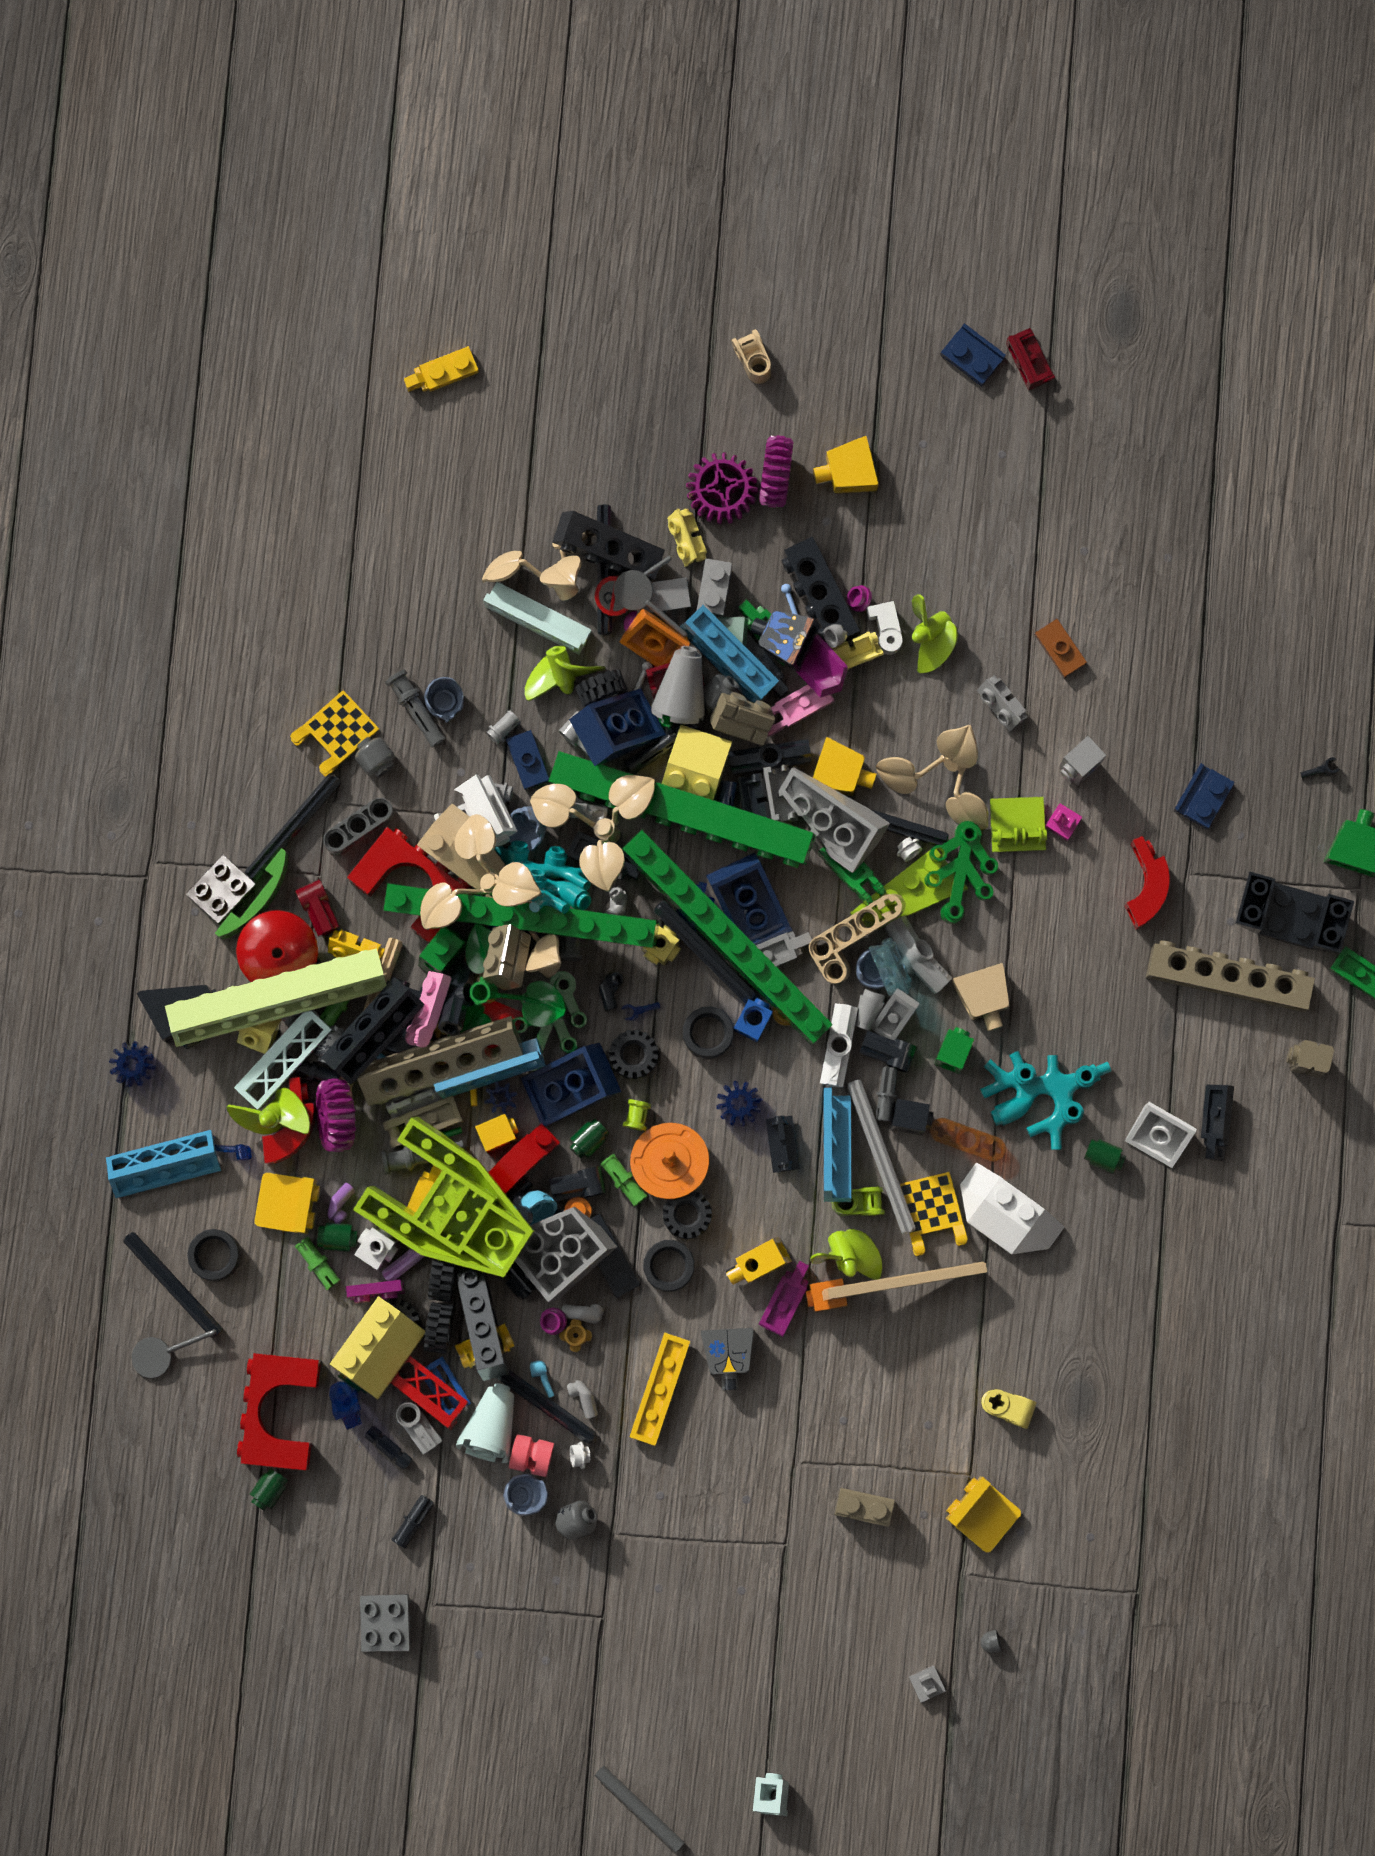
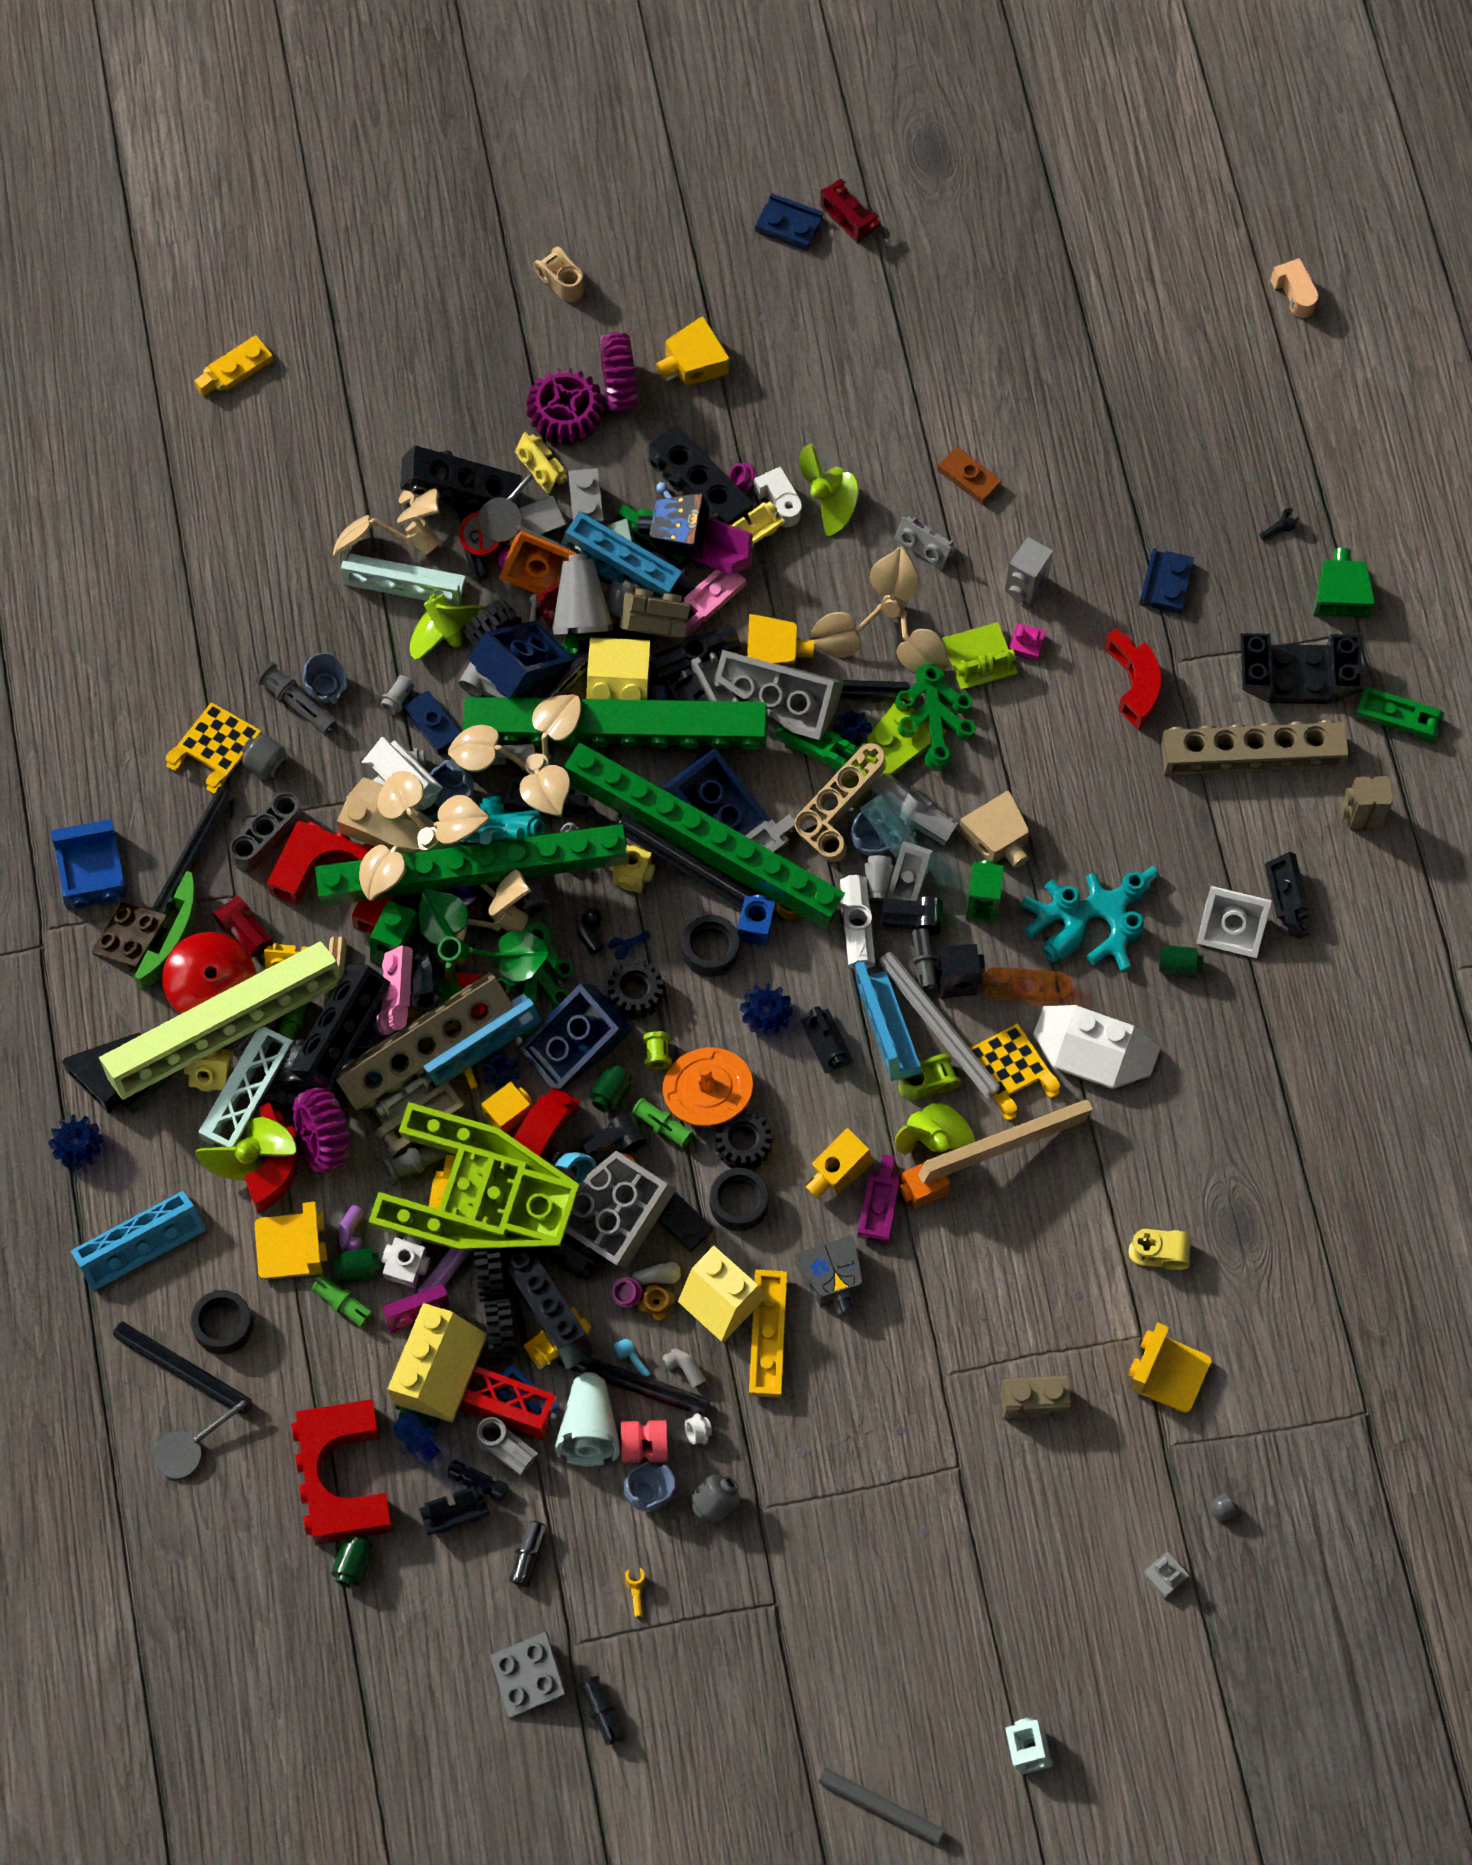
camera: 20 degrees left, 15 degrees down
(203, 816) = (89, 864): none -> blue panel
(242, 1151) = (223, 1202): clear blue hand -> none
(371, 1471) = (468, 1507): none -> black hinge
(437, 1668) = (602, 1710): none -> black pin
(491, 1578) = (635, 1587): none -> yellow hand
(506, 957) = (468, 907): dark tan brick -> none
(629, 1347) = (720, 1294): none -> light yellow slope
(835, 635) = (726, 506): light grey hinge -> none
(886, 857) = (853, 727): none -> gear
(909, 849) = (872, 706): white plate -> none

